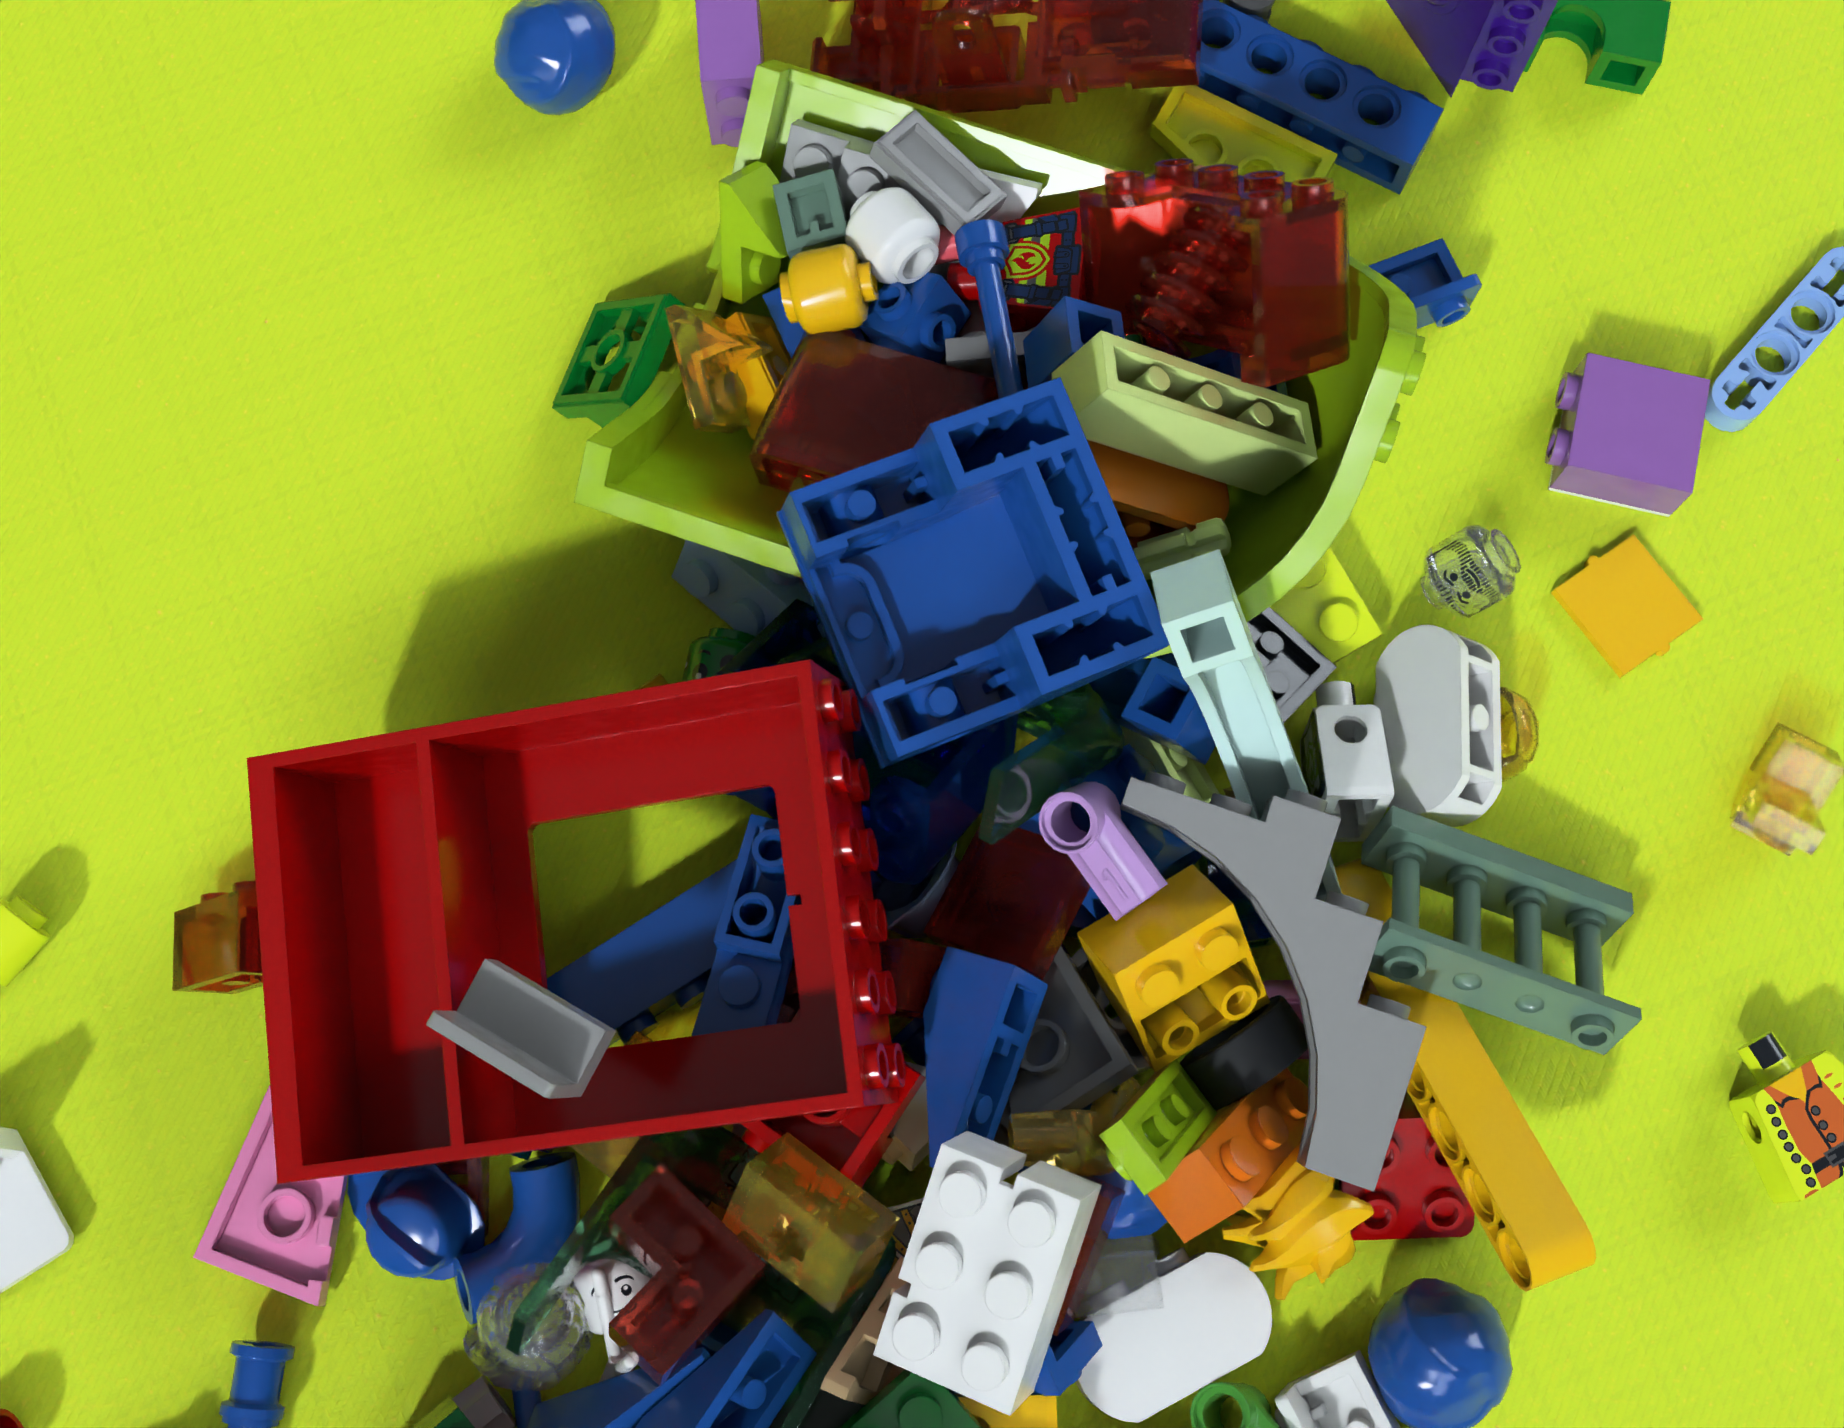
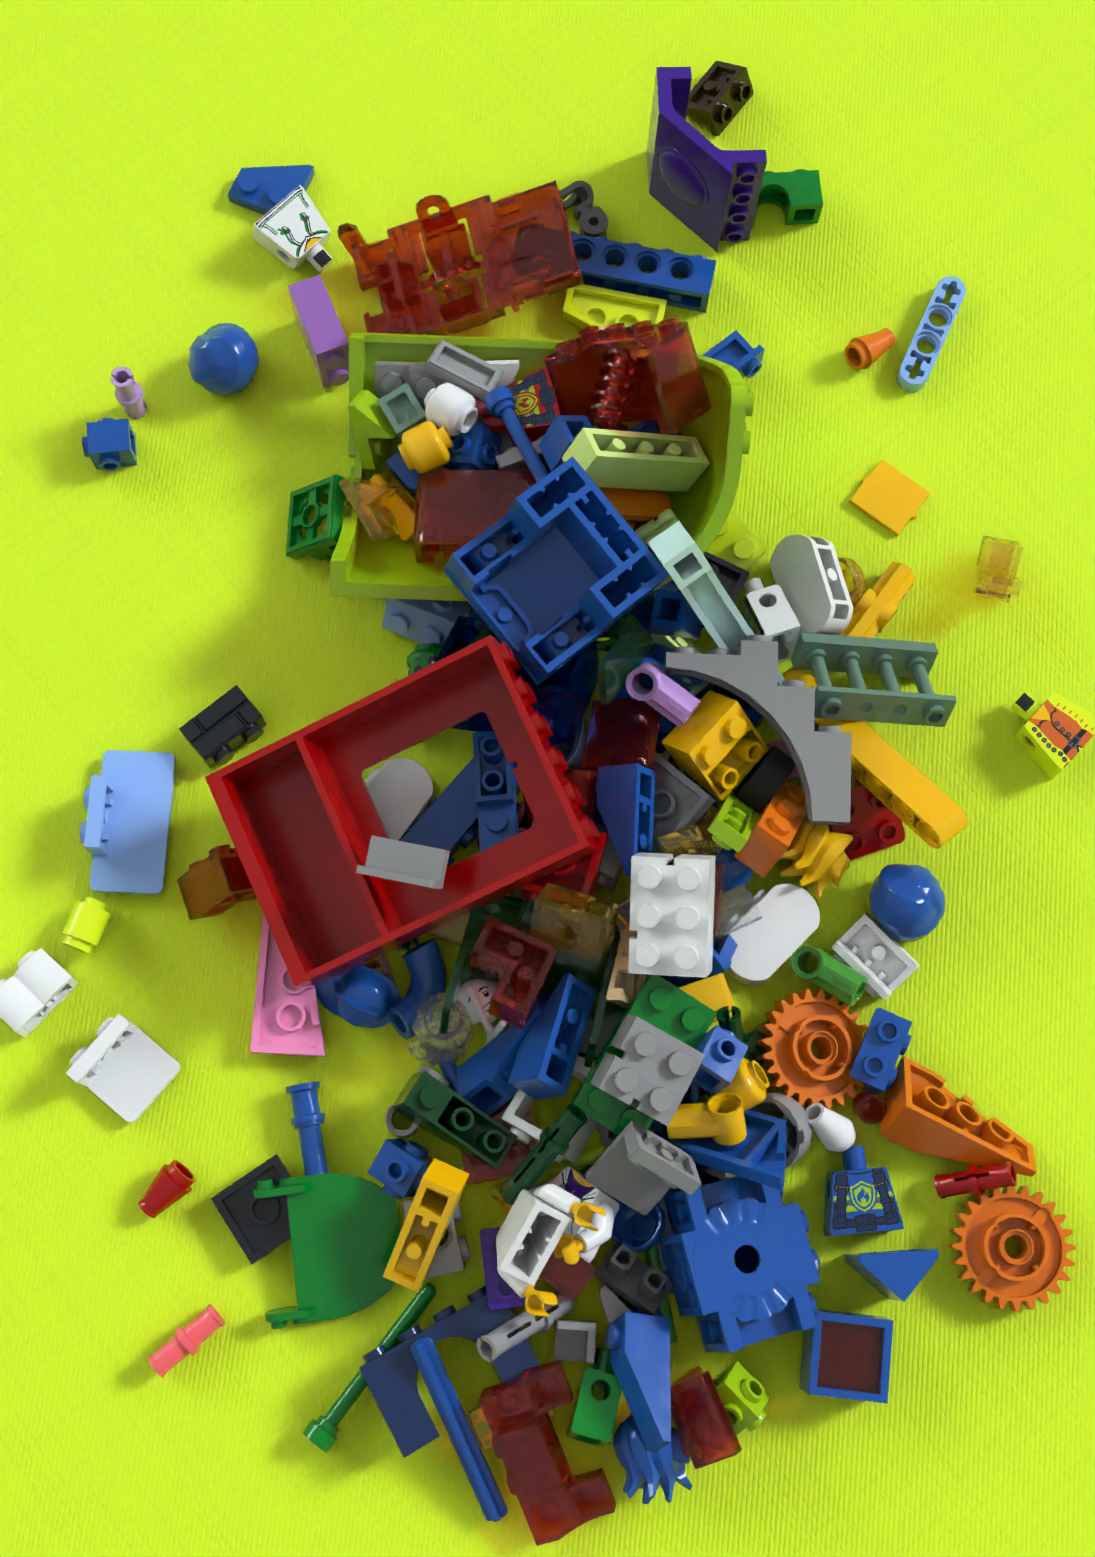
camera: 20 degrees left, 0 degrees up
(134, 785) = (129, 821): none -> light blue bracket
(327, 139) = (110, 444): none -> blue brick
(345, 672) = (224, 727): none -> black brick
(379, 61) = (128, 392): none -> lavender pin
(595, 885) = (400, 794): none -> white brick
(1470, 571) = (803, 502): clear head -> none
(1553, 789) = (880, 602): none -> yellow piece
(1627, 434) = (863, 407): medium lavender piece -> none
(1667, 333) = (868, 348): none -> orange cone

